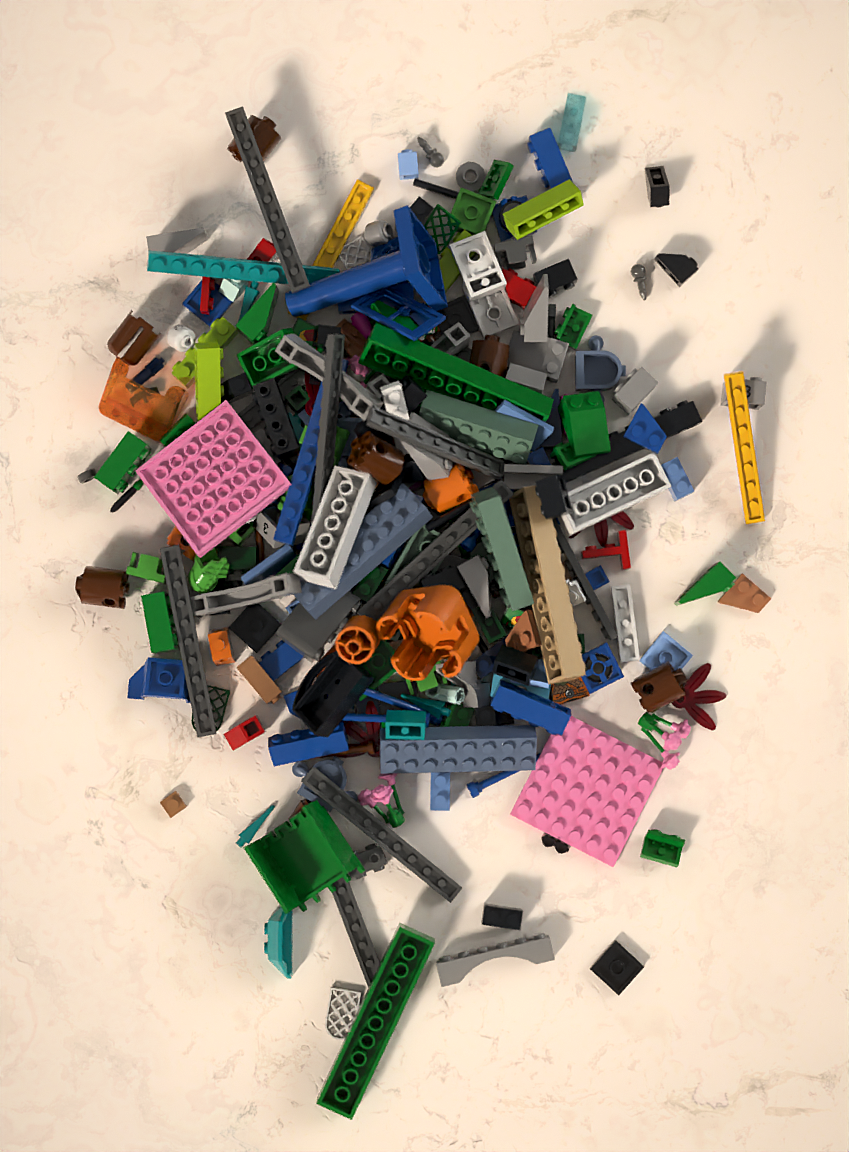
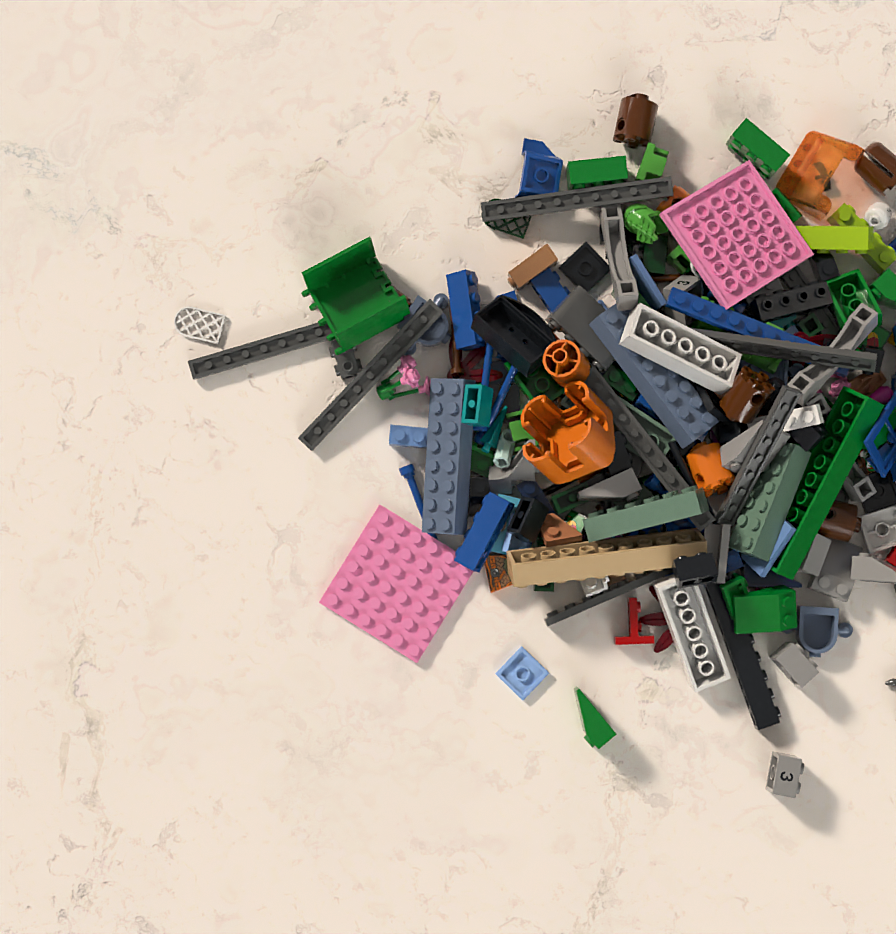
camera: 90 degrees right, 0 degrees up
(86, 476) = (746, 112): dark grey tile -> none
(126, 496) = (723, 151): black piece -> none
(149, 371) = (847, 183): dark blue piece -> none
(173, 804) = (416, 175): medium nougat plate -> none
(221, 646) = (567, 232): orange torso -> none
(245, 732) = (481, 250): red slope -> none
(248, 833) = (381, 245): teal piece -> none
(280, 941) = (274, 268): teal wedge -> none
(375, 1021) = (189, 354): green brick -> none
(502, 916) = (279, 487): black brick -> none
(534, 950) = (243, 518): light grey arch -> none
(550, 841) = (344, 550): black piece -> none
(551, 320) = (870, 586): dark grey bar -> none
(573, 326) = (863, 608): green bracket -> none
(597, 577) = (607, 610): blue tile -> none
(600, 668) = (517, 604): blue piece -> none
(617, 967) = (219, 597): black tile -> none
(625, 623) = (560, 635): white plate -> none
(645, 430) = (753, 671): blue wing -> none
(662, 847) = (334, 652): green bracket -> none
(665, 684) = (494, 663): reddish brown cylinder -> none
(672, 741) = (440, 669): bright pink plant -> none
(678, 479) = (701, 700): medium blue brick -> none
(699, 697) = (480, 703): dark red plant -> none
(744, 447) = (730, 769): yellow tile -> none
(745, 595) = (578, 758): nougat wing -> none

